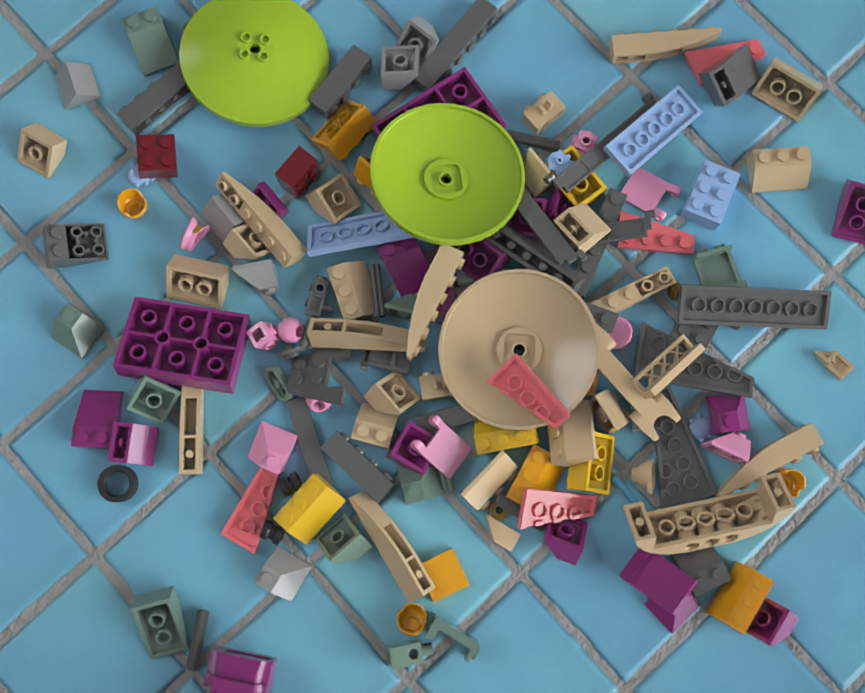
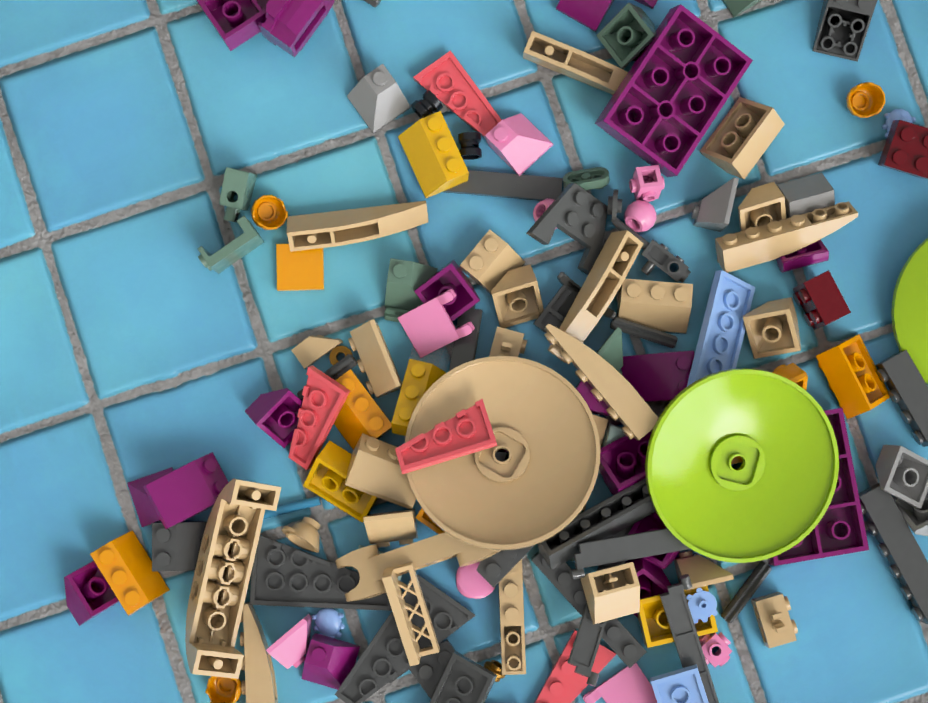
camera: 115 degrees right, 5 degrees up
(193, 235) = (798, 153): bright pink piece -> none
(343, 541) = (383, 176): sand green slope -> none
(357, 466) = (457, 225): dark grey brick -> none

